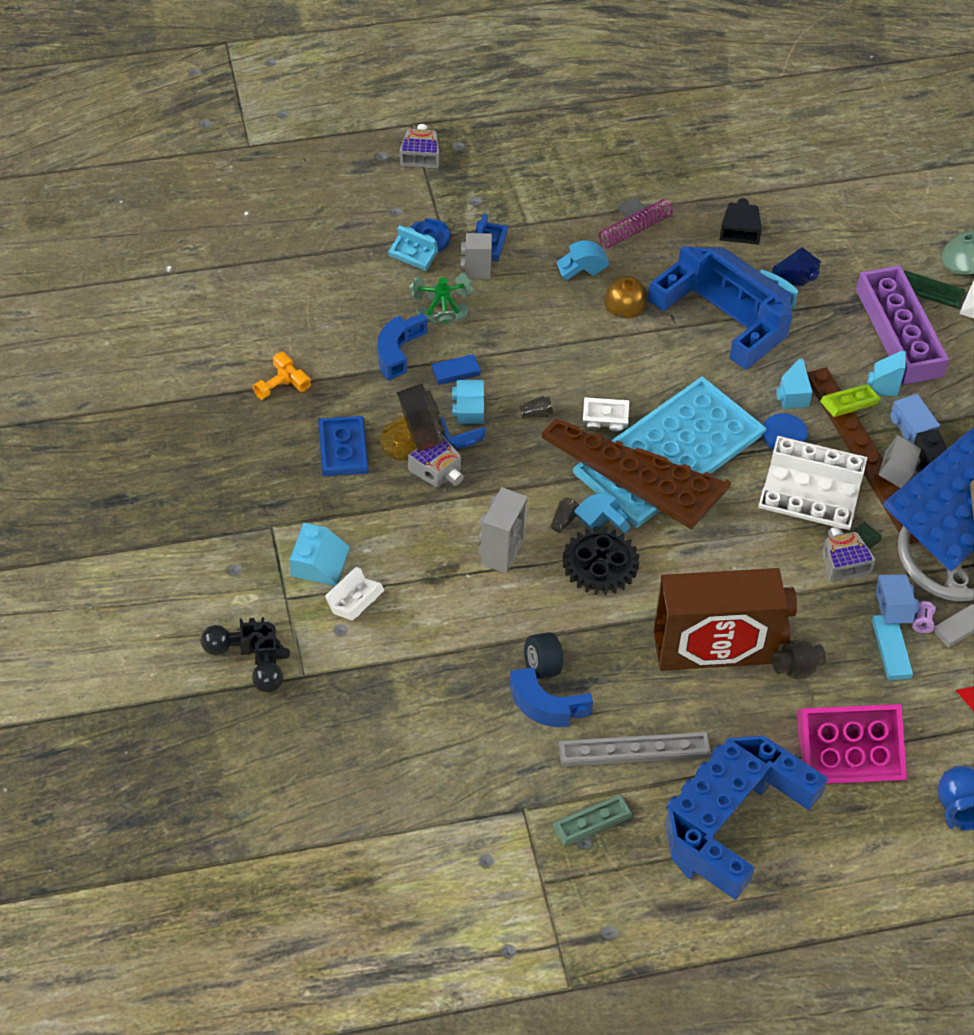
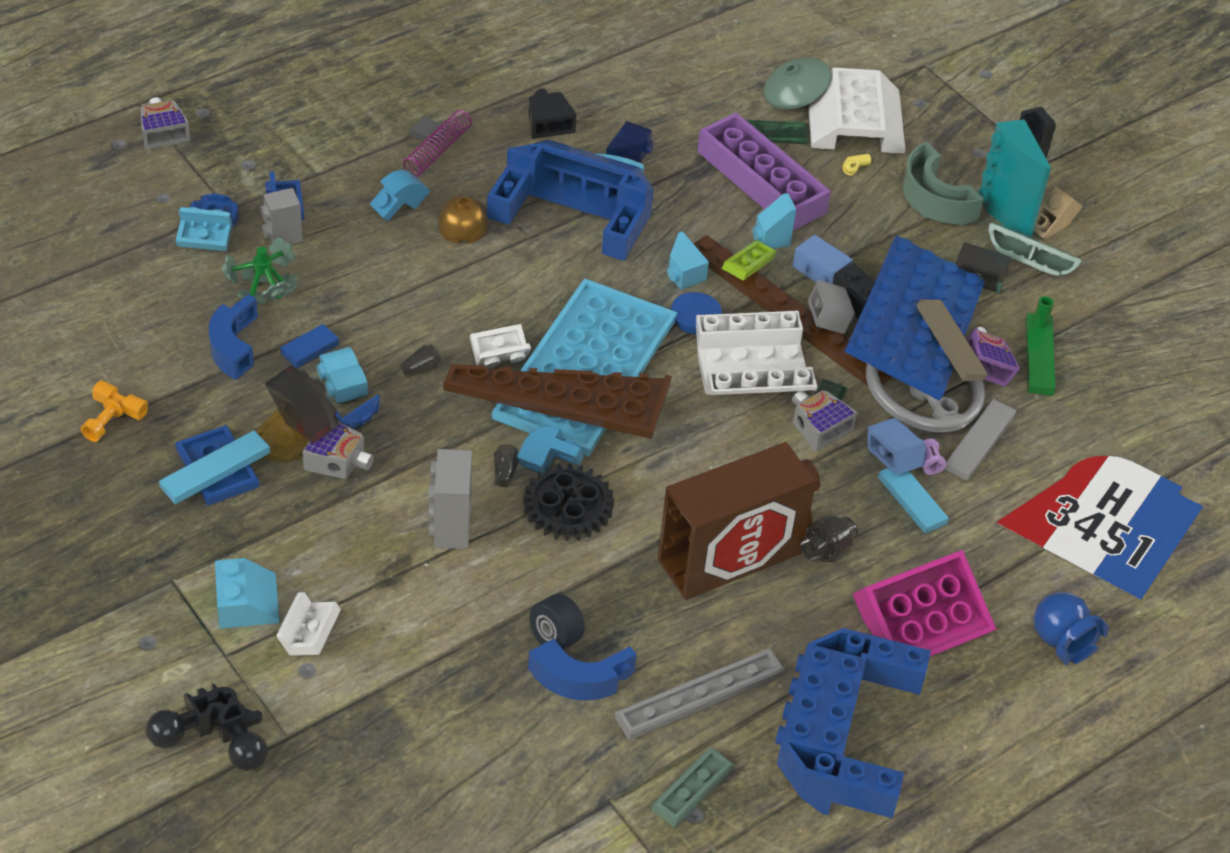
camera: 25 degrees left, 5 degrees down
(338, 447) = (214, 467): none -> medium azure tile

